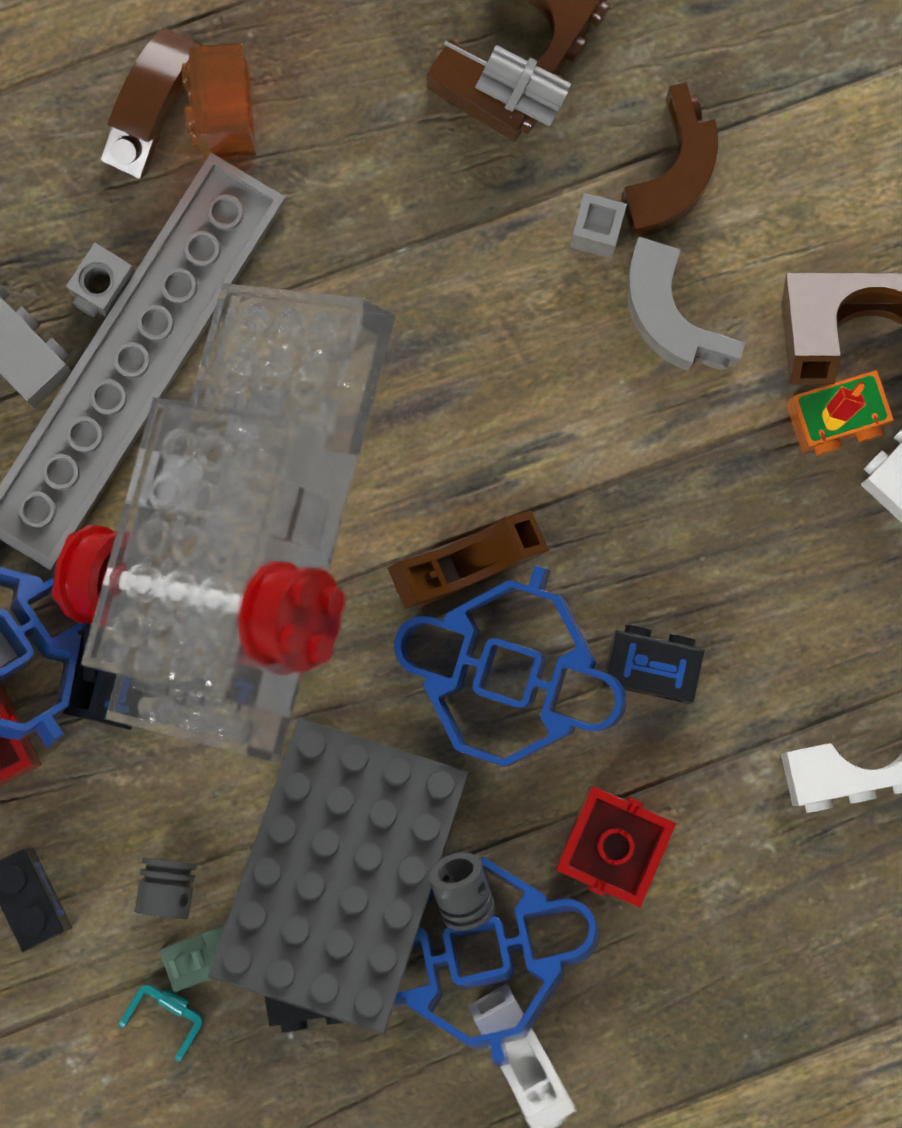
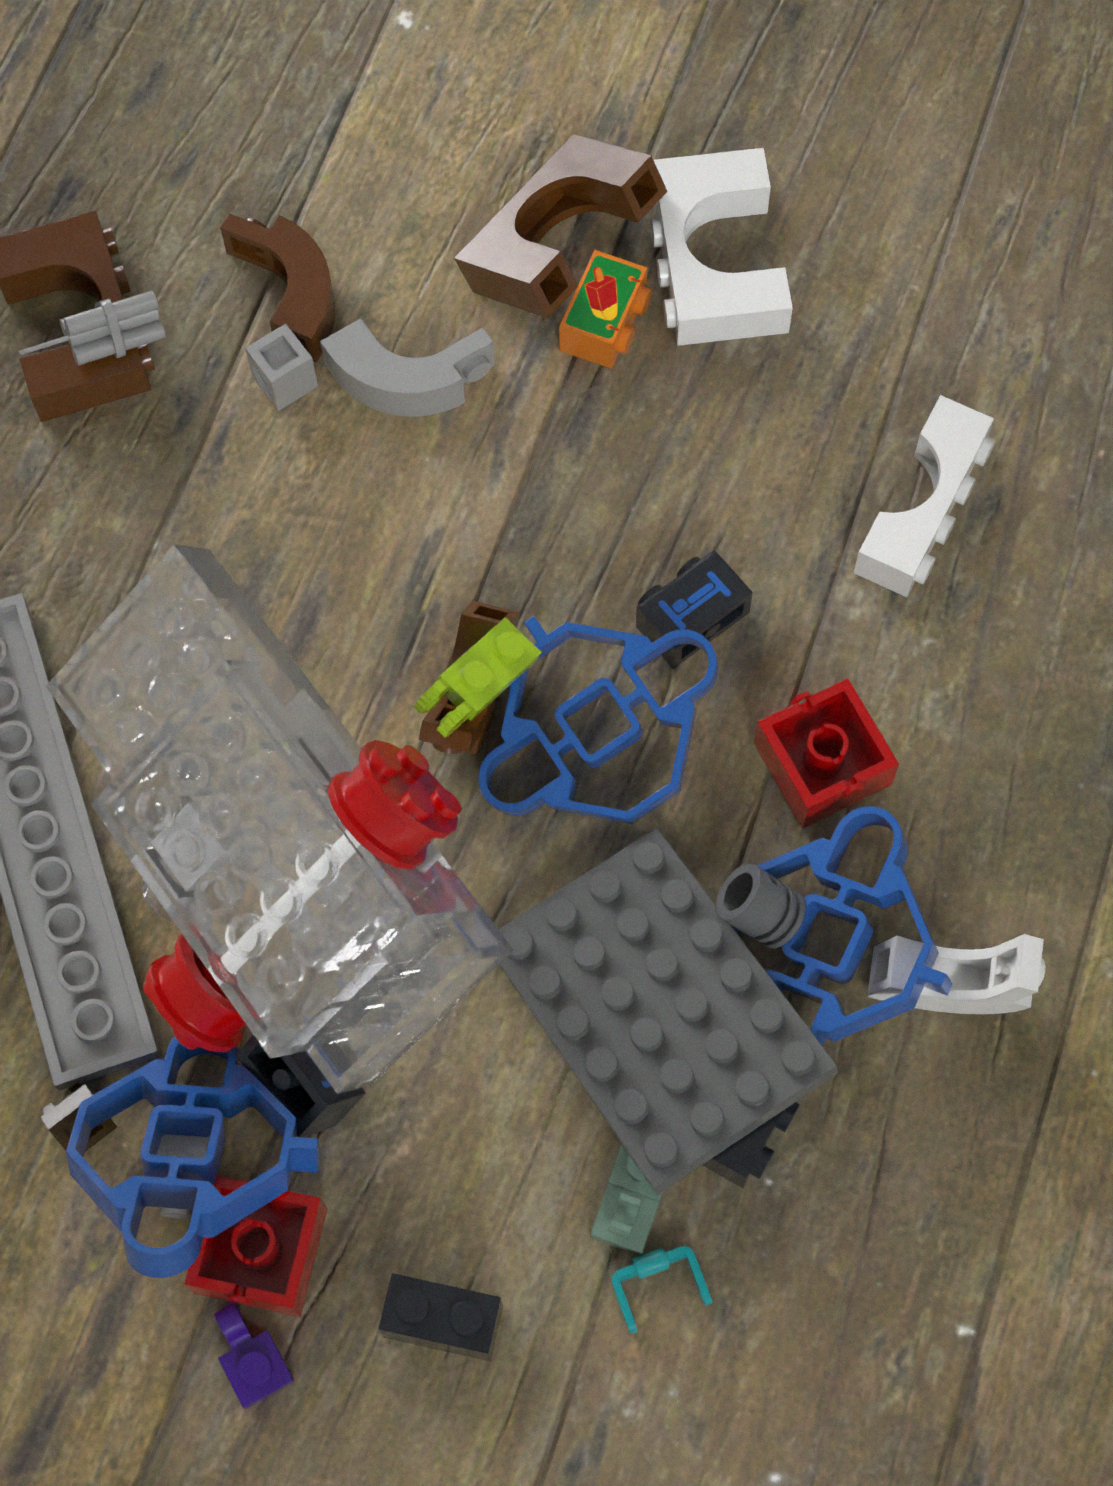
camera: 50 degrees left, 15 degrees down
(165, 888) = (538, 1178): dark grey piece -> none
(465, 572) = (480, 675): none -> lime hinge

